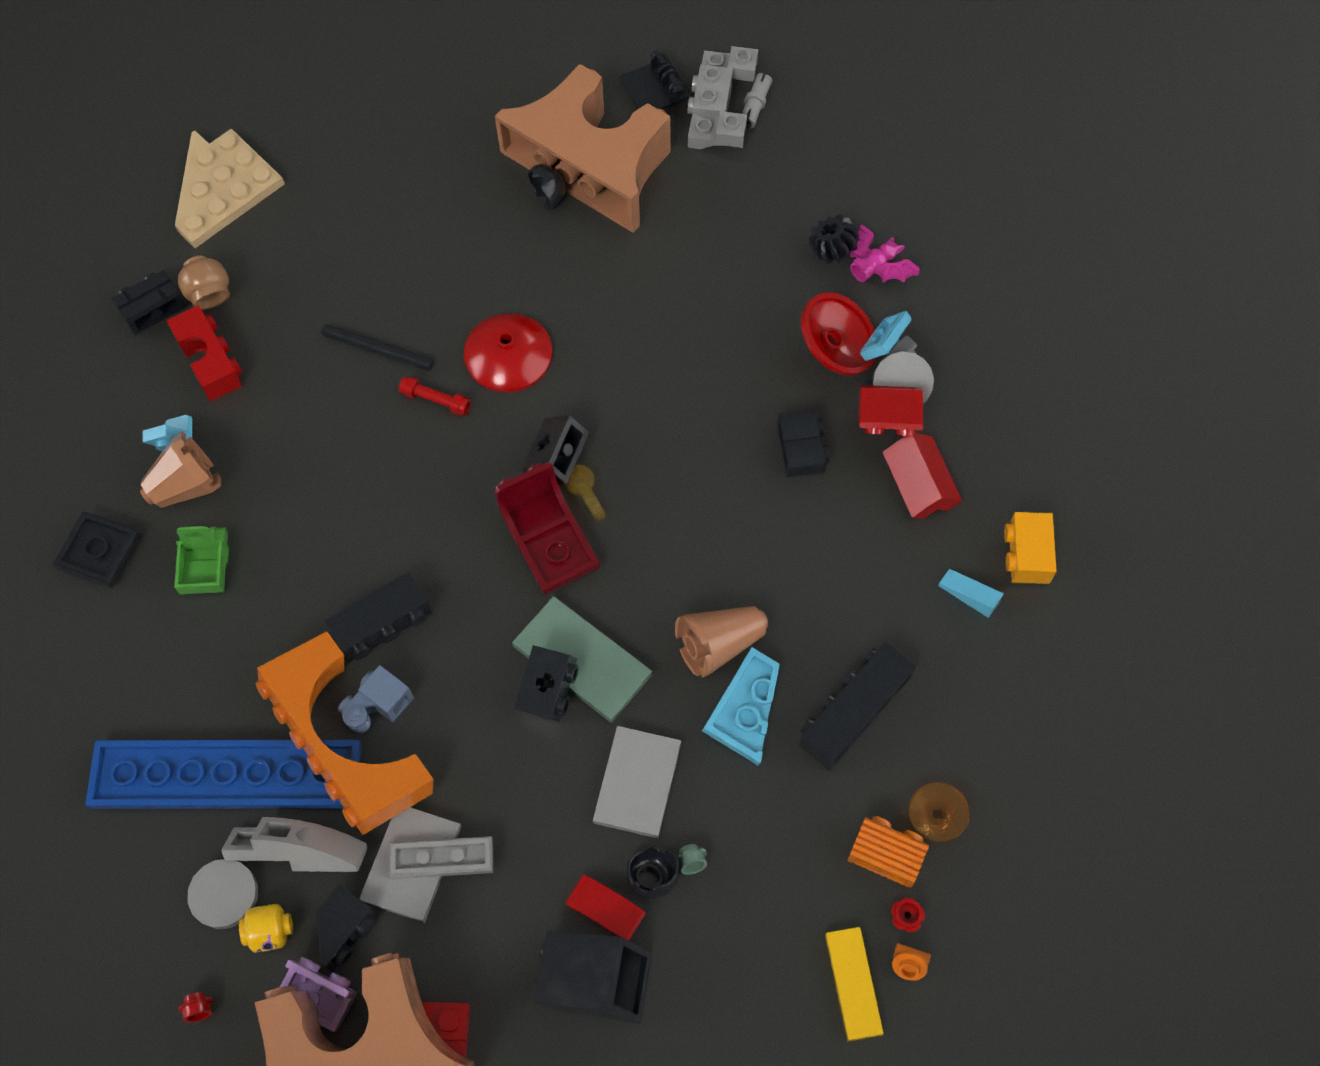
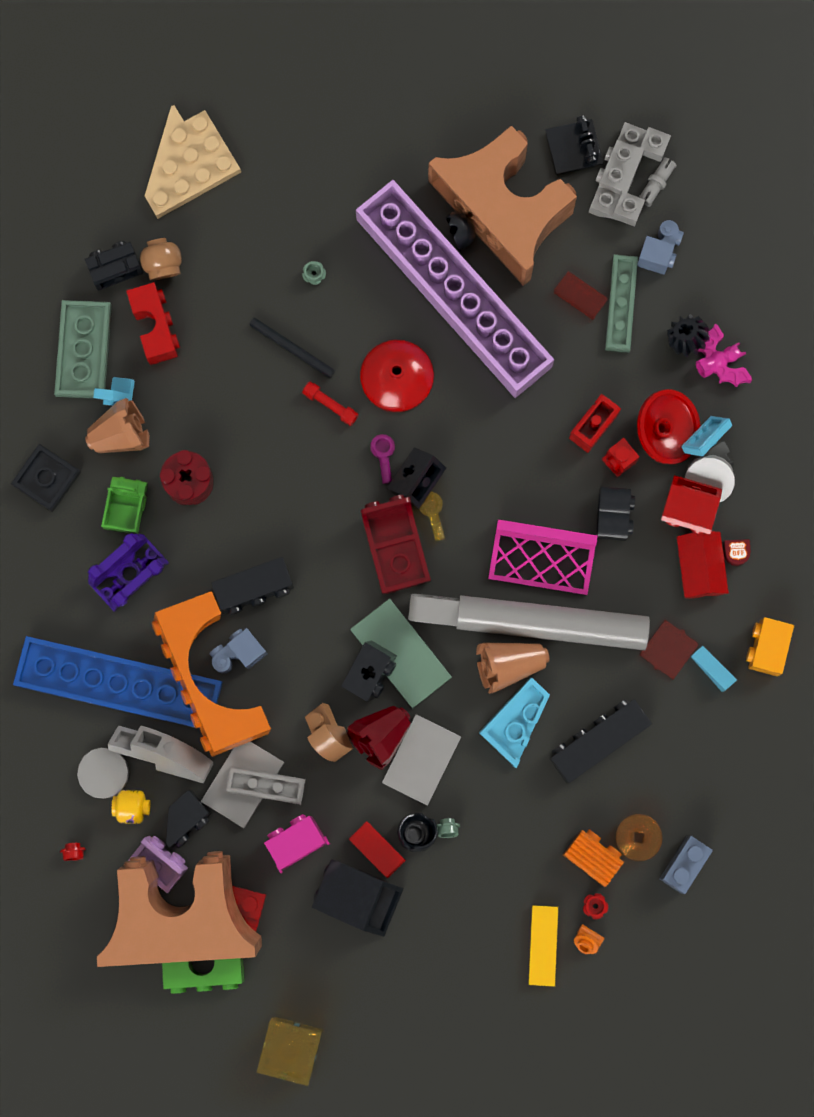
camera: 15 degrees right, 15 degrees up
(123, 399) = (82, 348): none -> sand green tile
(203, 624) = (116, 564): none -> dark purple piece
(274, 510) = (181, 490): none -> dark red brick
(385, 258) = (309, 268): none -> sand green plate
(495, 918) = (295, 842): none -> dark pink brick
(508, 430) = (382, 448): none -> magenta plate
(508, 775) = (327, 737): none -> medium nougat brick
(556, 245) = (454, 288): none -> lavender brick
(575, 759) = (380, 734): none -> dark red cone
(700, 227) = (580, 295): none -> clear red tile
(732, 482) = (546, 535): none -> dark pink fence
(735, 581) = (532, 620): none -> light grey piece
(749, 227) = (621, 303): none -> sand green tile
(752, 348) = (594, 423): none -> red brick
(775, 164) = (657, 253): none -> sand blue brick
(792, 380) = (620, 457): none -> red brick
(910, 582) = (669, 649): none -> clear red piece
(958, 455) = (737, 551): none -> tile
(1008, 832) = (686, 864): none -> sand blue brick

